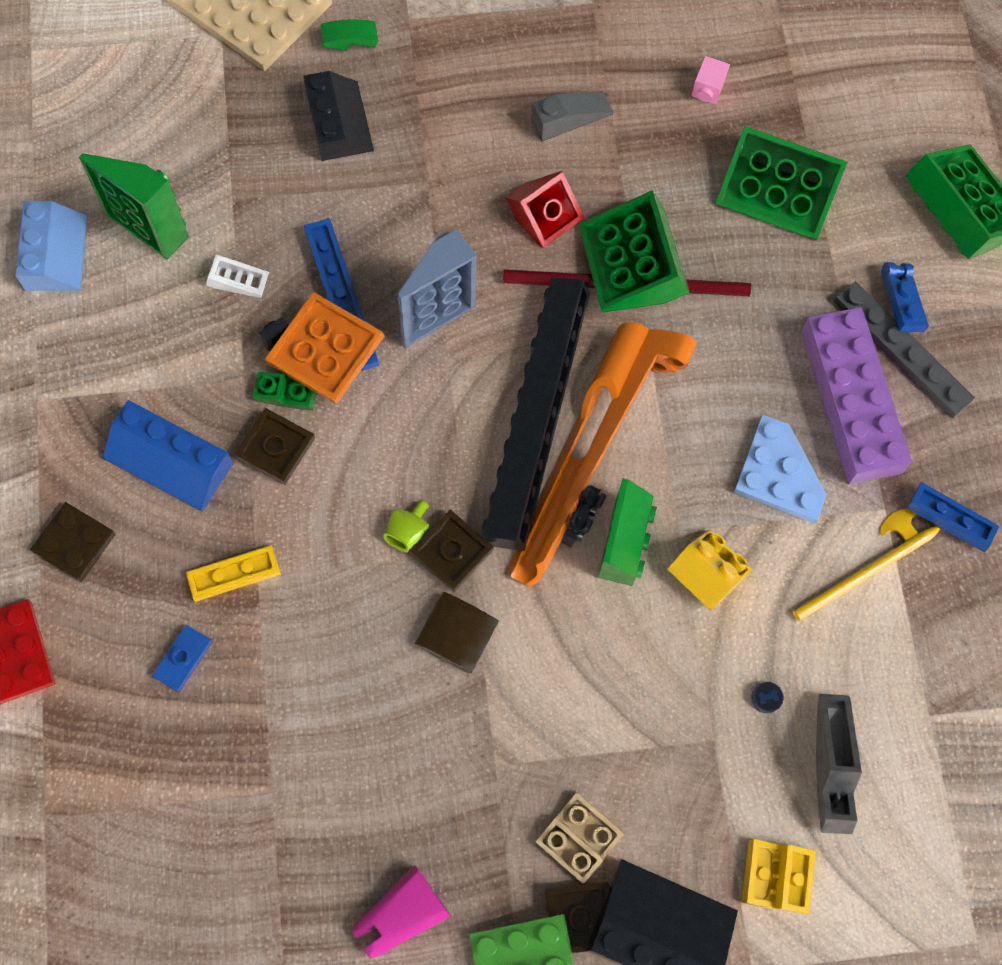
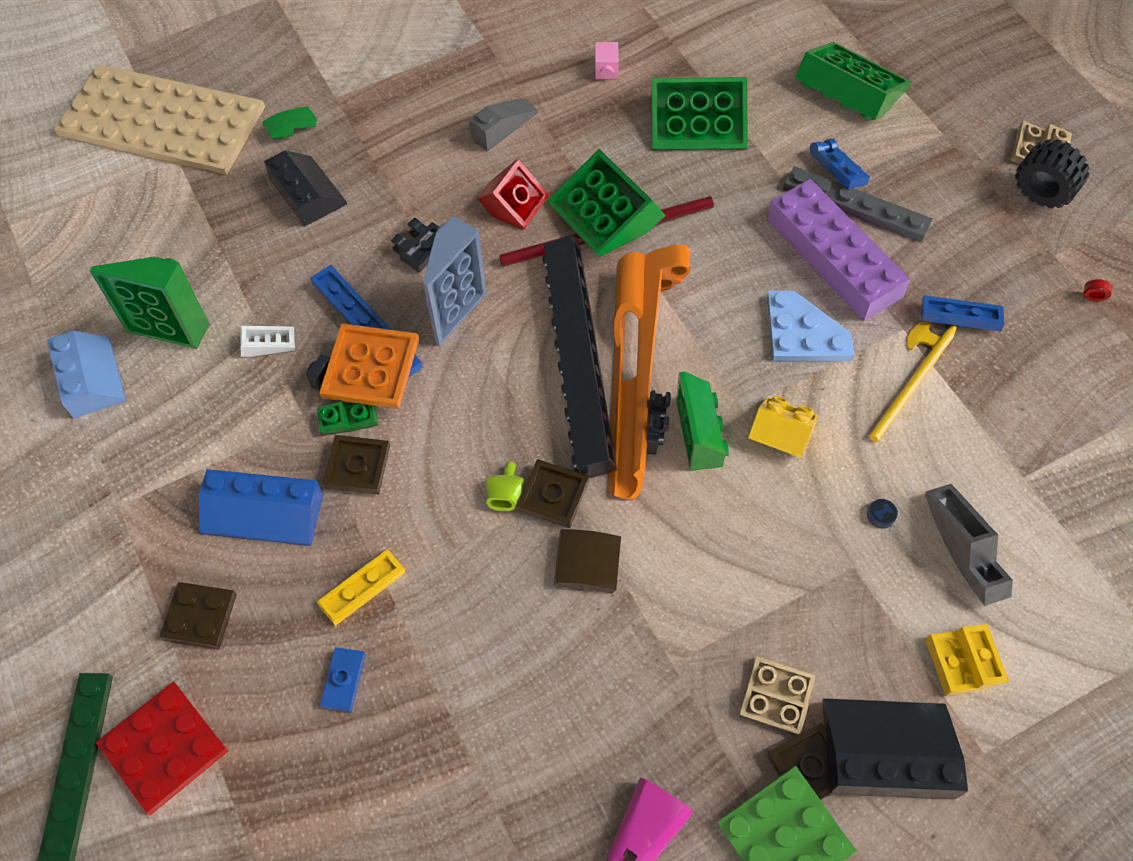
camera: 15 degrees left, 10 degrees down
(421, 235) = (417, 252): none -> black plate

